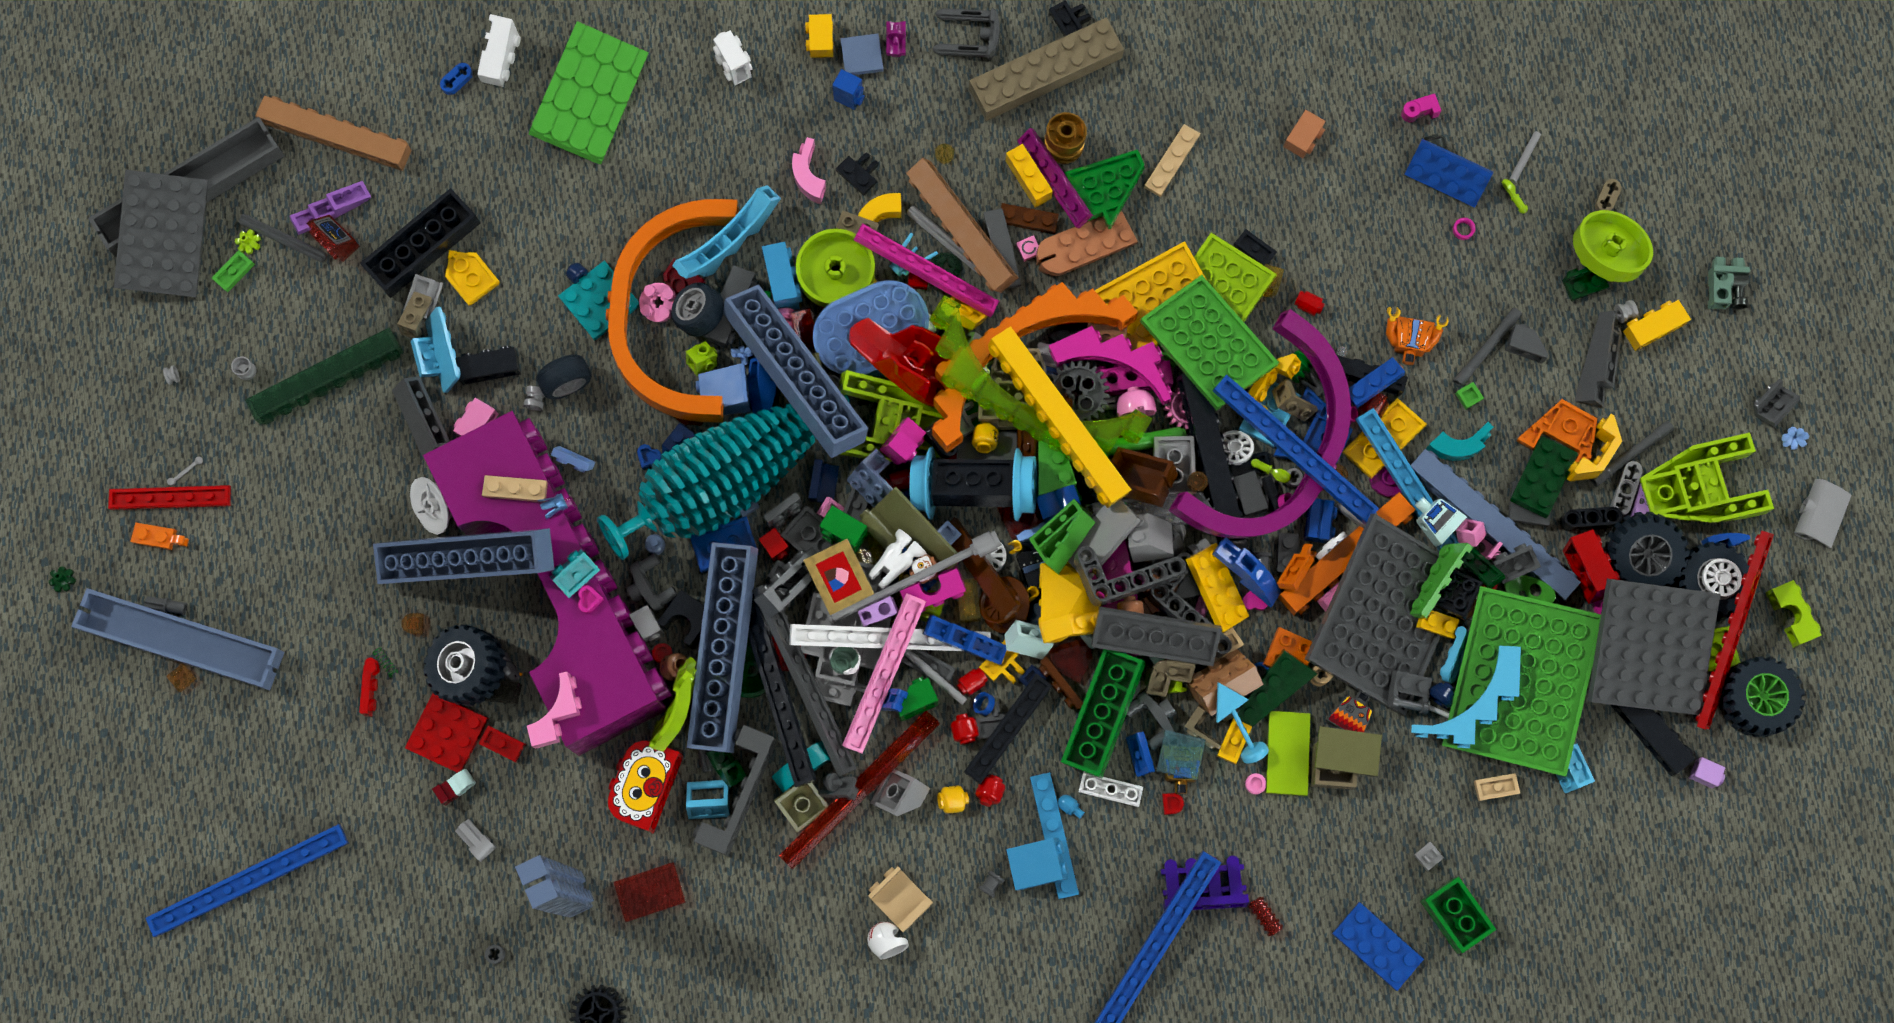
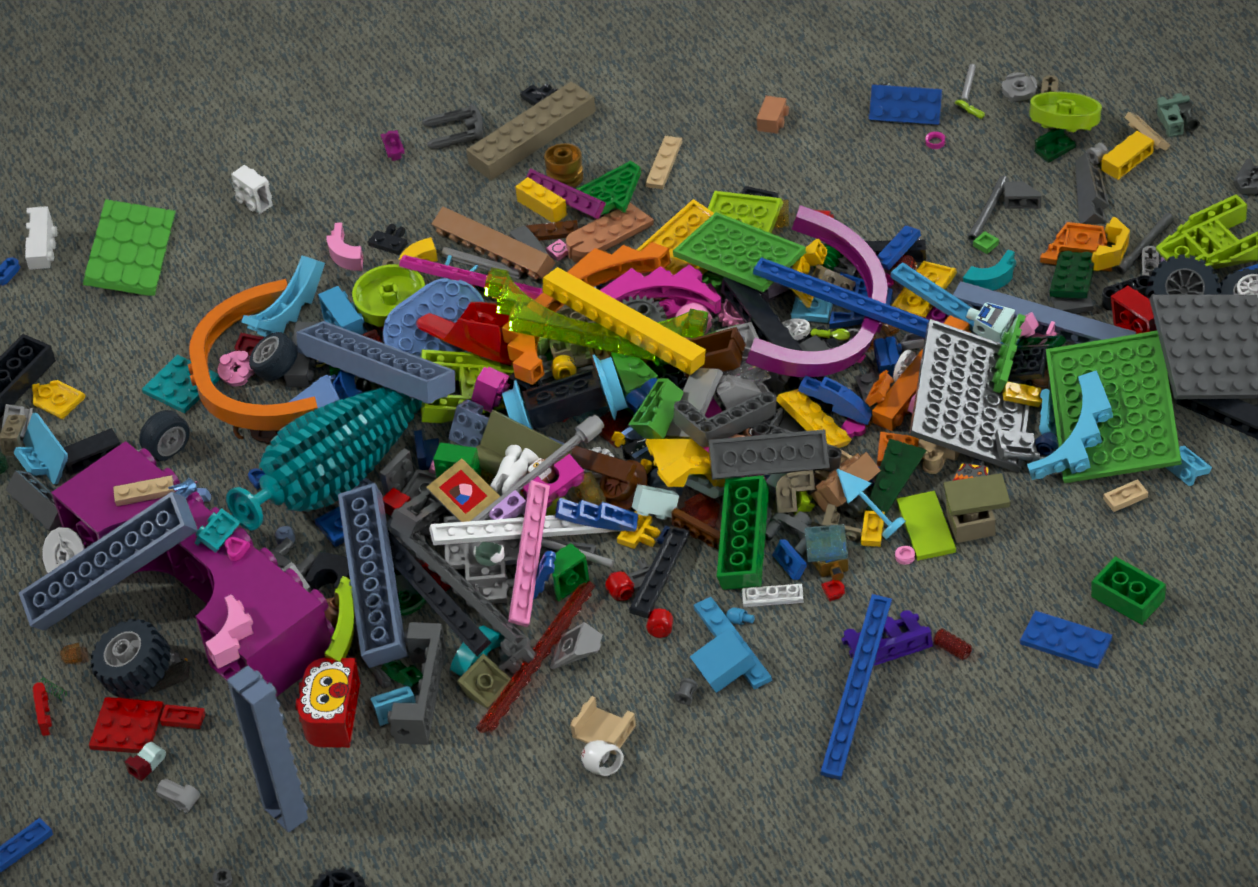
camera: 10 degrees left, 30 degrees down
(576, 272) = (153, 368): dark blue piece -> none
(649, 892) = (360, 788): clear red plate -> none
(701, 358) = (286, 391): lime brick -> none
(820, 35) = (325, 160): yellow brick -> none
(848, 89) = (361, 183): blue brick -> none
(862, 54) = (366, 163): sand blue tile -> none
(944, 153) = (462, 208): clear yellow tile -> none
(952, 799) = (626, 639): yellow head -> none
(972, 682) = (615, 550): red brick -> none
(978, 701) = (627, 561): blue piece -> none
(1412, 335) = (918, 214): orange torso -> none
(1421, 107) = (866, 73): dark pink leg -> none
(1428, 856) = (1085, 561): light grey tile -> none
(1517, 563) = (1073, 327): dark grey bracket -> none
(1584, 176) = (1027, 87): none -> light grey plate
(1688, 297) = (1137, 123): none -> tan plate

